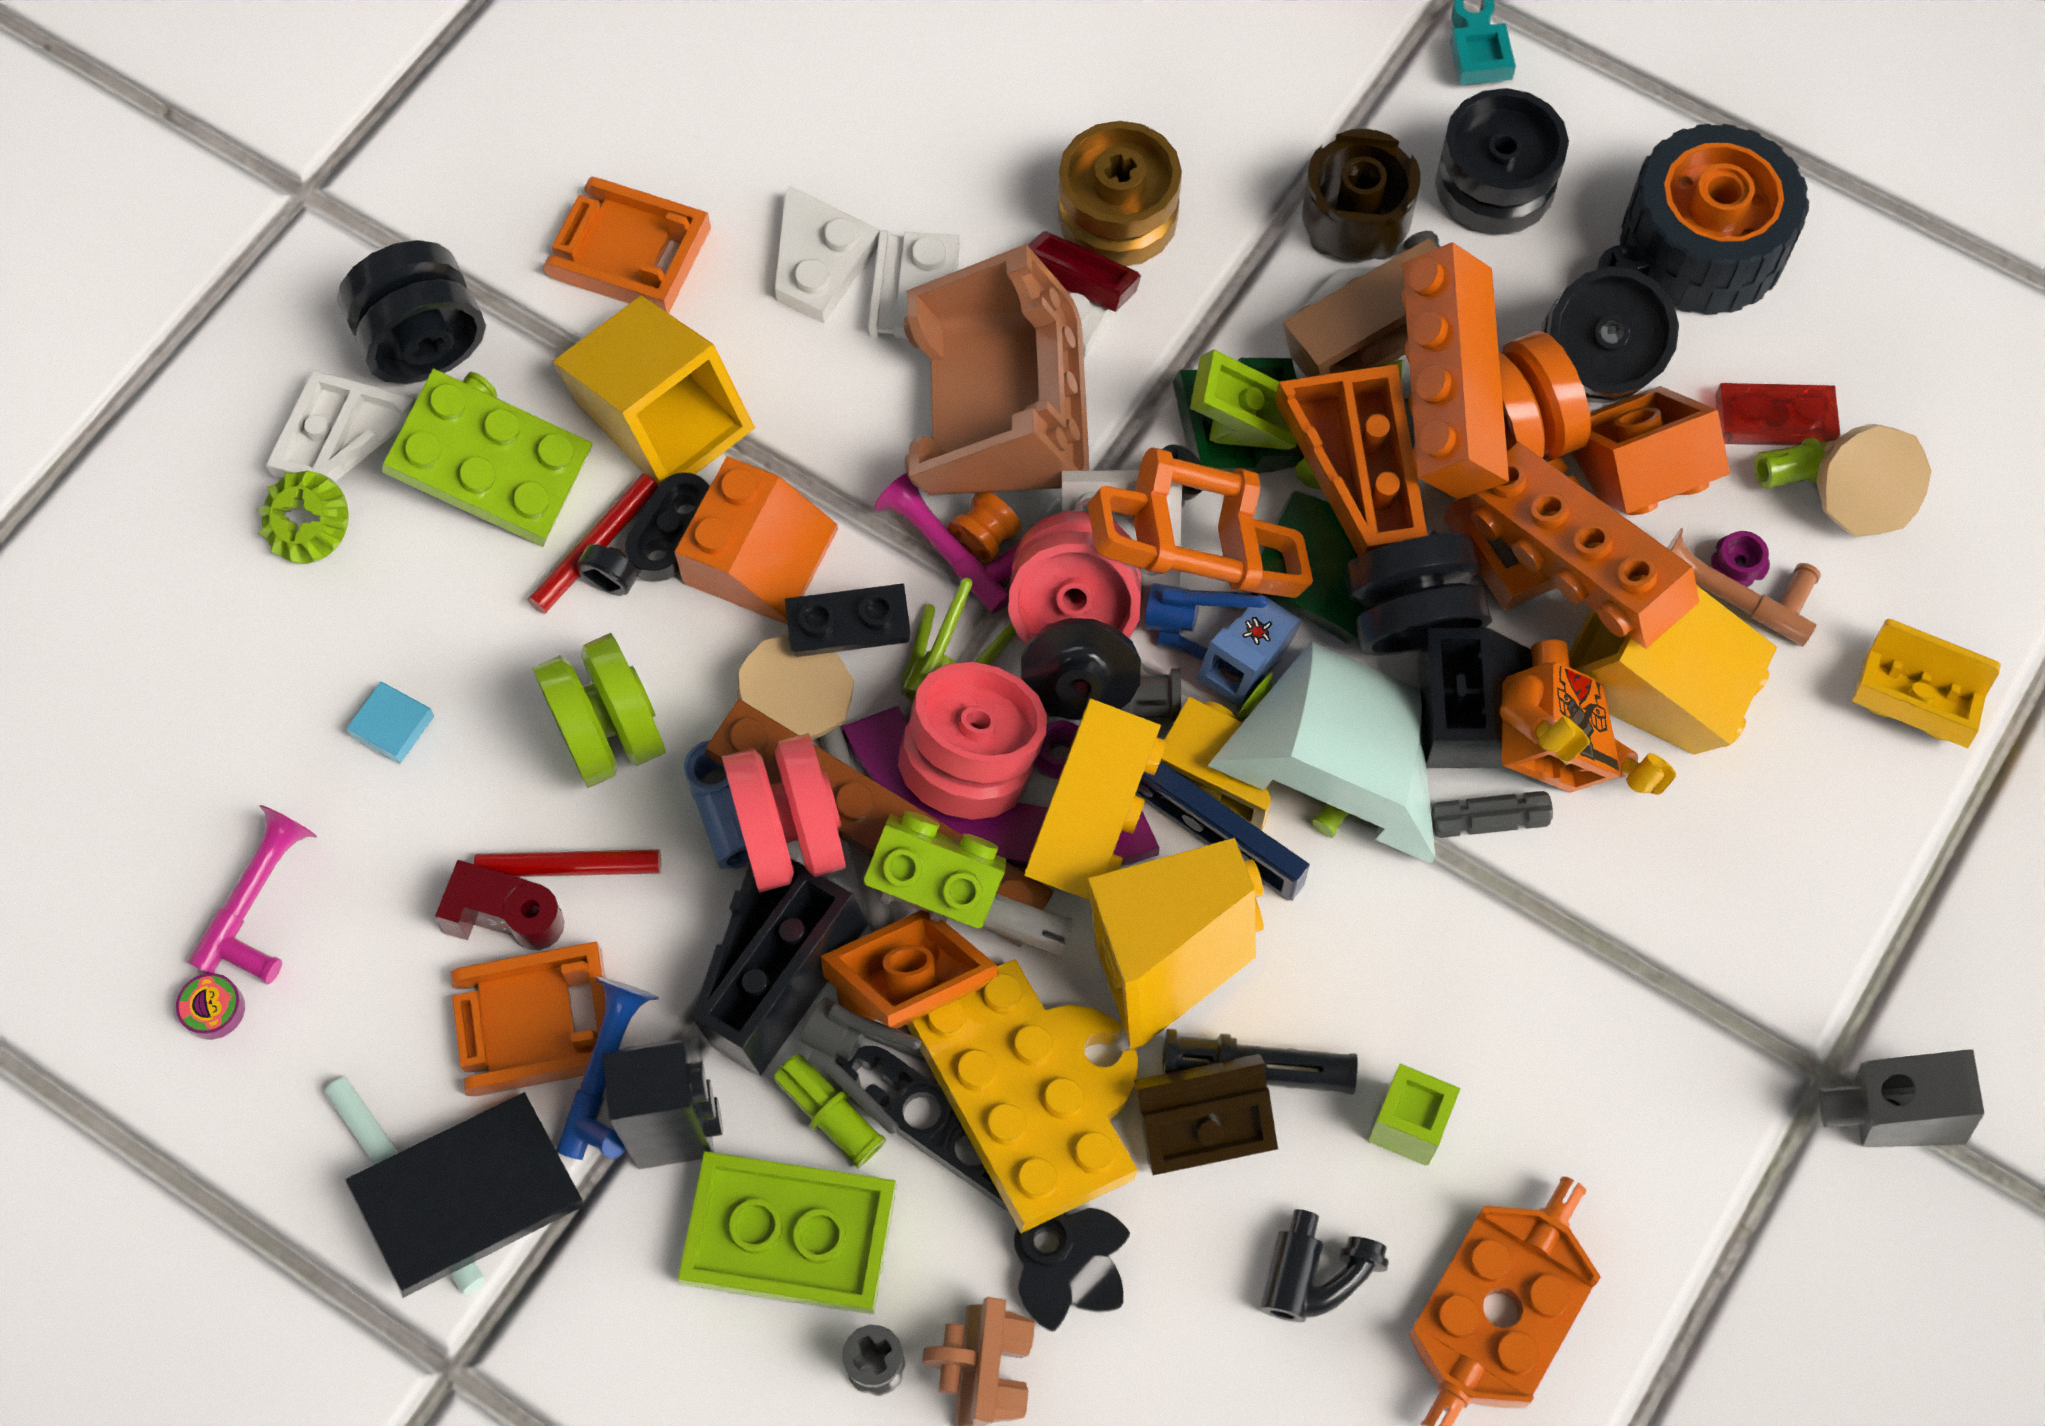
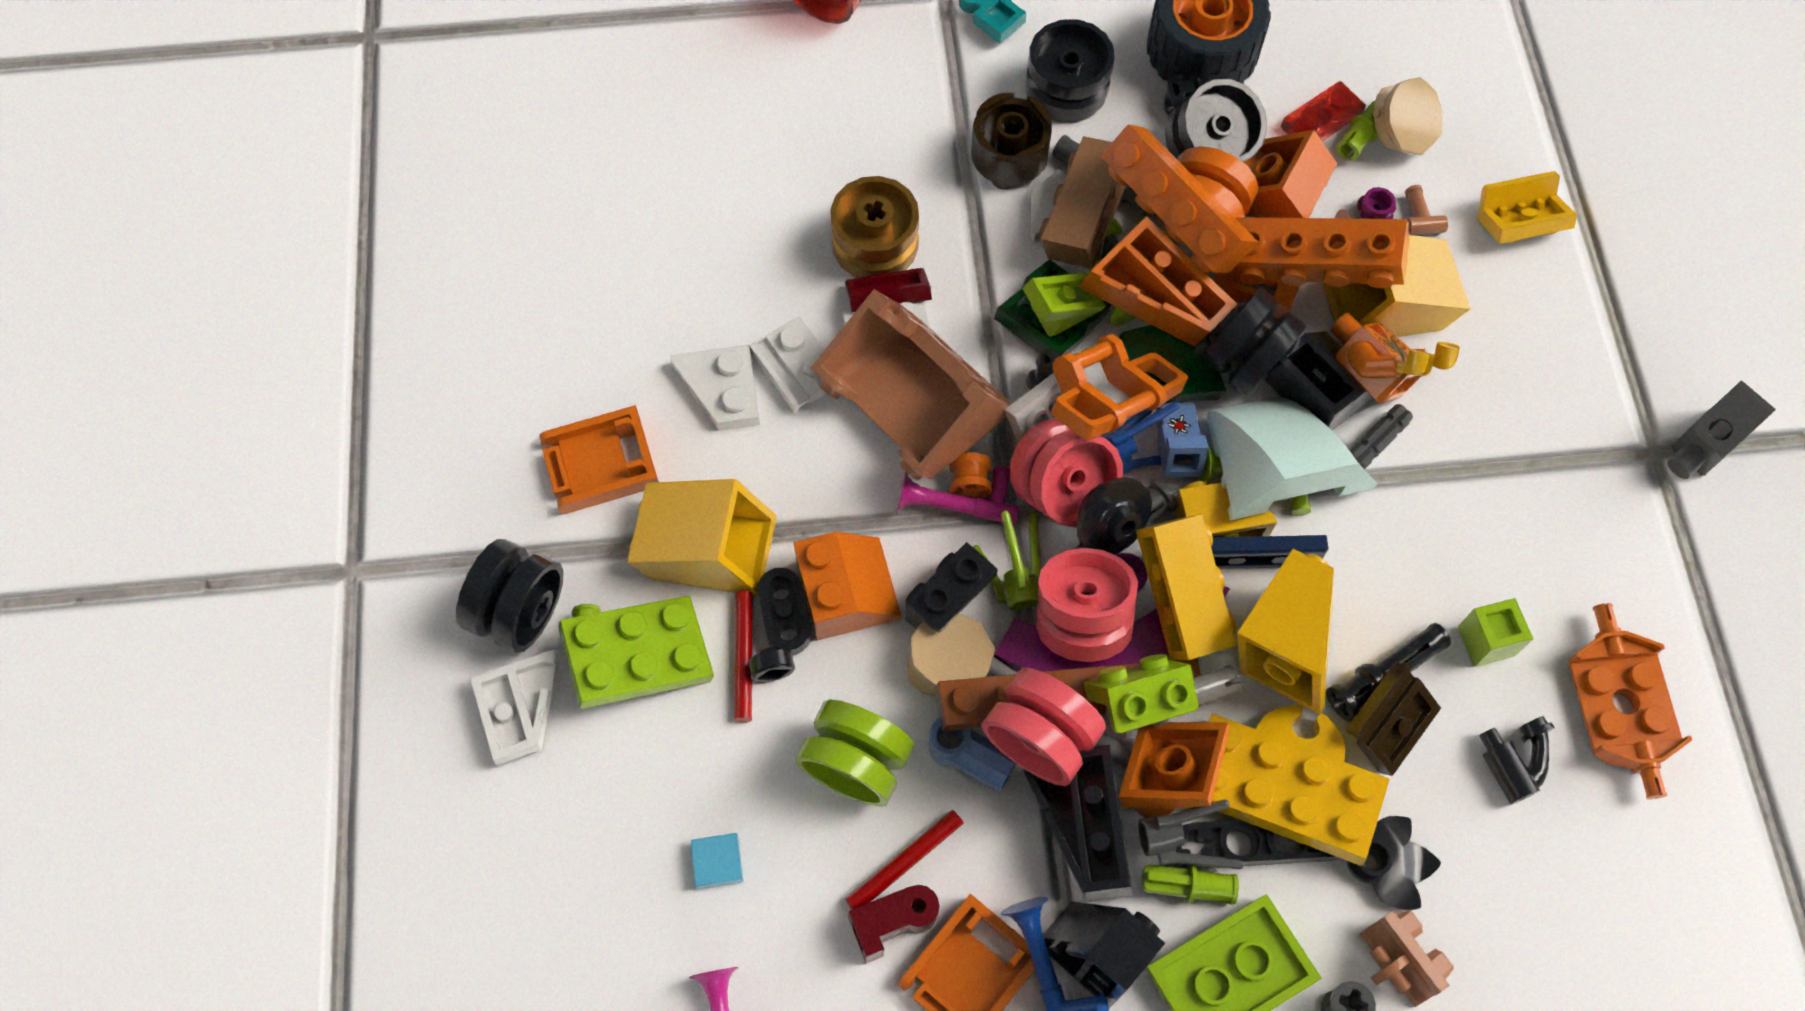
camera: 40 degrees left, 0 degrees up
(314, 539) = (552, 754): lime gear -> none

